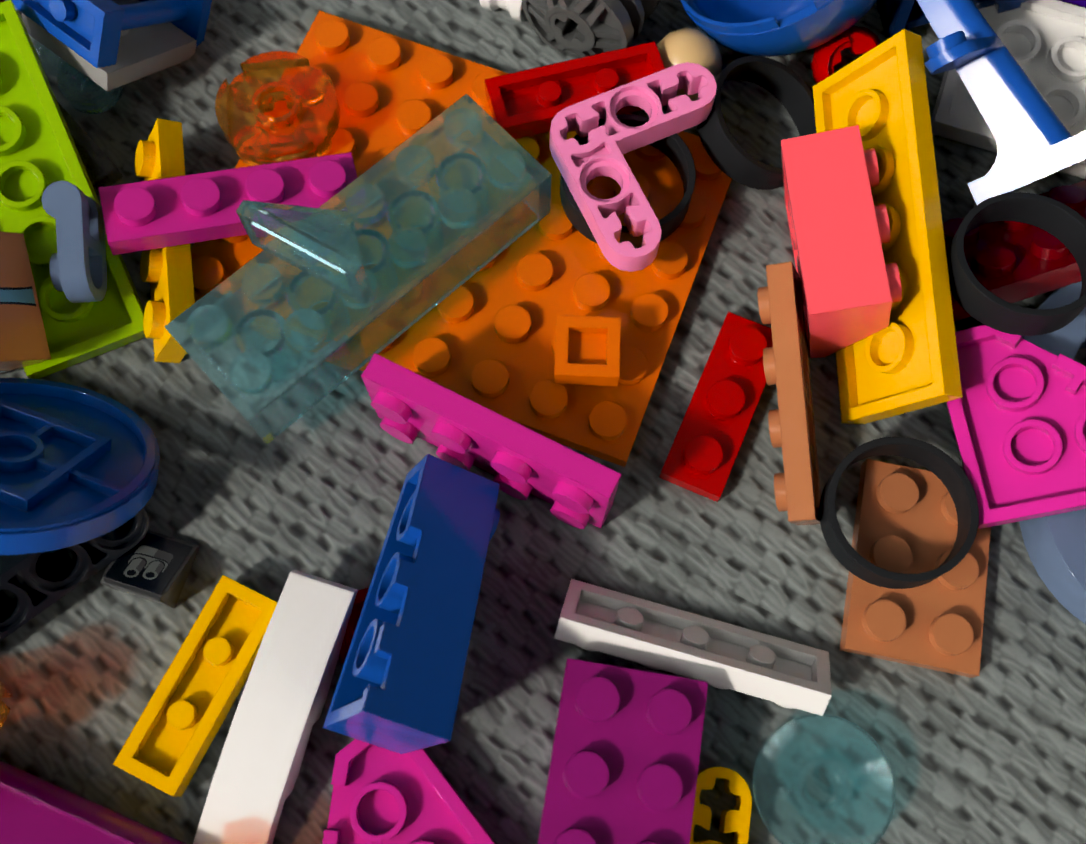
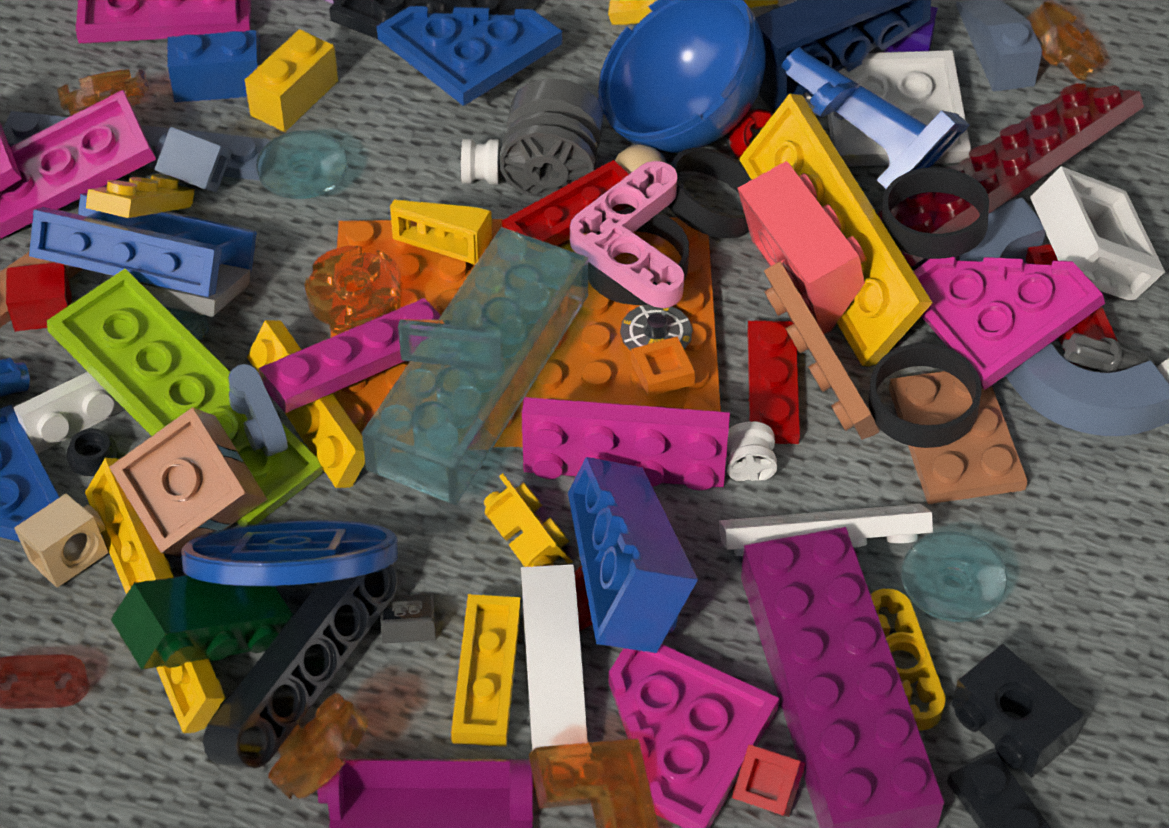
camera: 20 degrees left, 20 degrees down
(340, 473) = (516, 511): none -> yellow hinge
(413, 65) = (456, 229): none -> yellow slope
(602, 290) = (653, 324): none -> piece
(648, 501) = (751, 452): none -> white wheel

